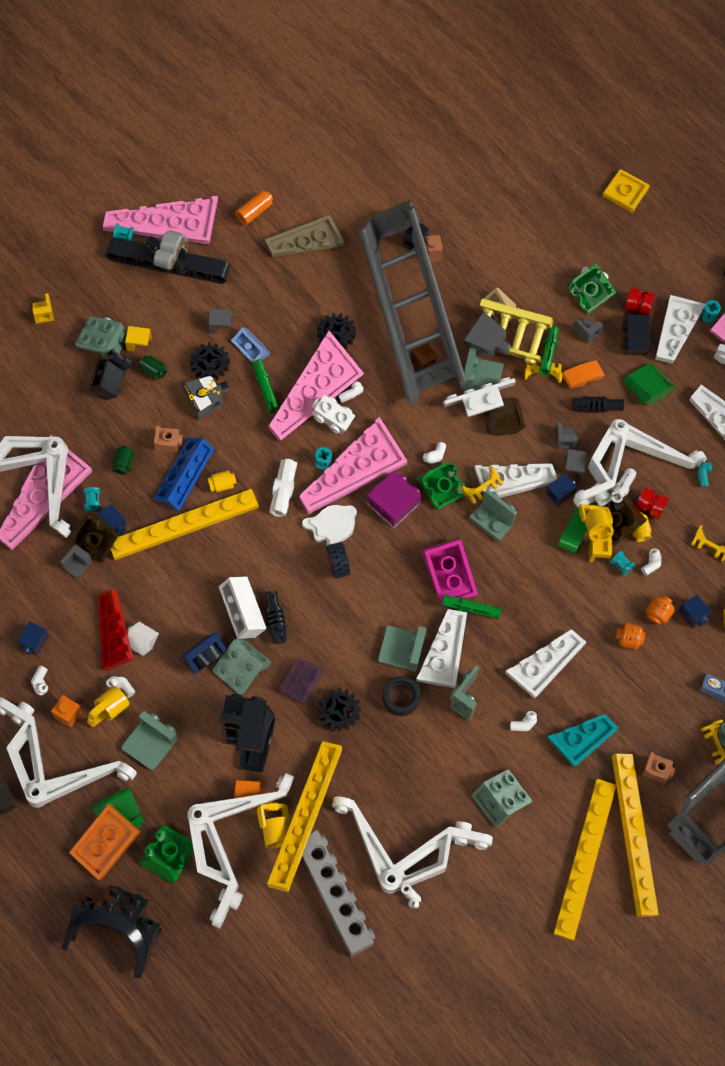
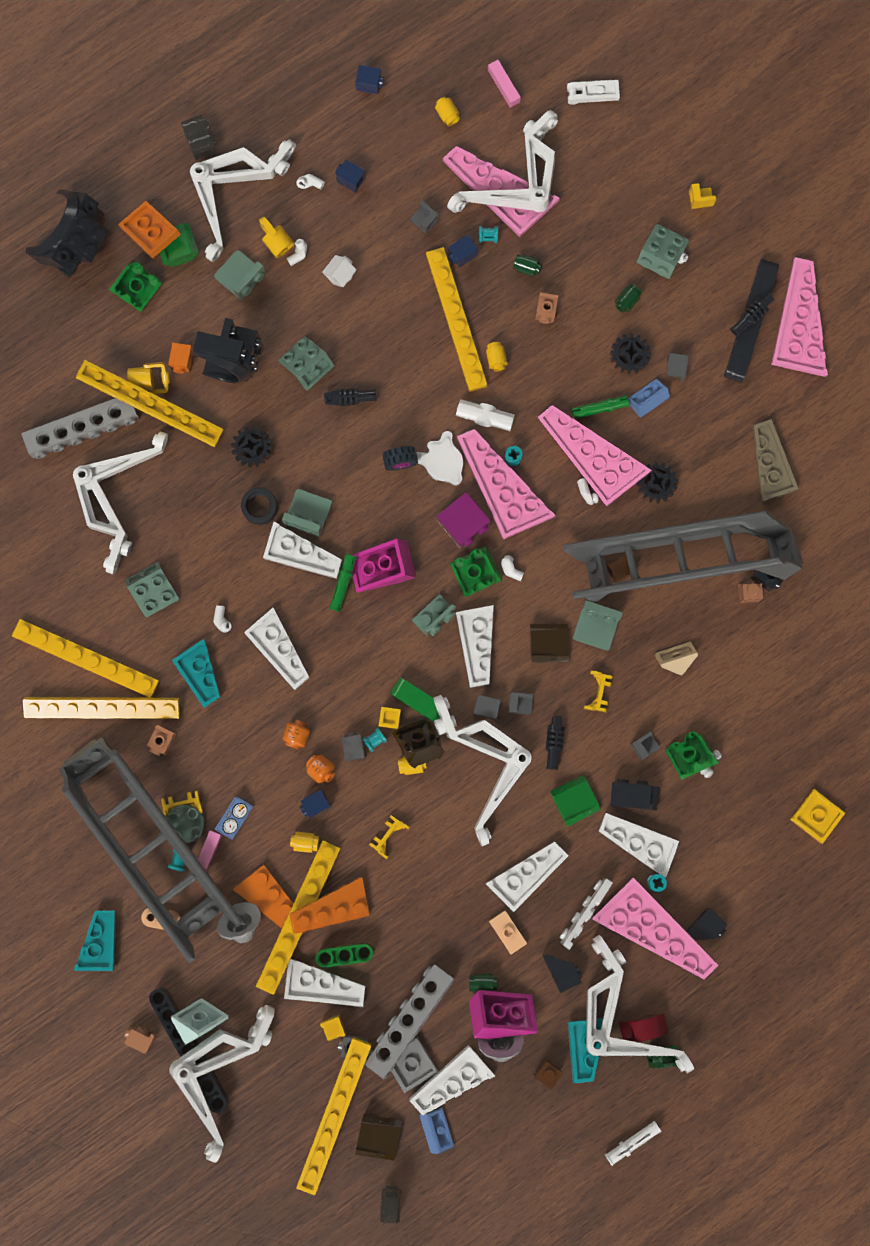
camera: 100 degrees right, 15 degrees up
(66, 711) = (275, 202): orange brick -> none
(95, 536) = (446, 233): dark brown slope -> none
(109, 375) = (620, 255): black hinge -> none
(113, 632) = (347, 246): red wing -> none
(123, 232) = (784, 276): teal bush -> none
(137, 336) = (661, 284): yellow panel -> none
(170, 246) = (753, 314): light grey animal -> none
(185, 473) = (508, 324): blue fence -> none
(203, 653) = (318, 325): dark blue piece -> none
(204, 395) = (592, 346): torso -> none
(213, 812) = (158, 314): white piece -> none
(242, 607) = (361, 365): white brick -> none
(254, 207) = (812, 412): orange brick -> none
(301, 680) = (284, 415): clear purple plate -> none
(332, 414) = (556, 472): white brick -> none
(411, 895) = (72, 492): white arm -> none
(464, 703) = (240, 561): sand green bracket -> none
(471, 492) = (462, 596): yellow piece -> none
(482, 399) = (564, 620): white bracket -> none
(487, 337) = (631, 631): dark grey torso -> none
(524, 318) = (653, 674): light yellow fence -> none
(550, 345) = (640, 707): green pin -> none
(561, 489) = (460, 690): dark blue brick -> none
(583, 373) = (591, 732): orange slope -> none
(597, 521) = (412, 715): yellow piece -> none
(622, 487) = (449, 747): white pin -> none
(633, 582) = (353, 746): none -> flat silver brick
(639, 301) = (672, 805): red wheel -> none
(653, 503) = (436, 779): red wheel -> none
(654, 562) = (374, 773): white arm -> none
(702, 473) = (466, 839): teal arm -> none

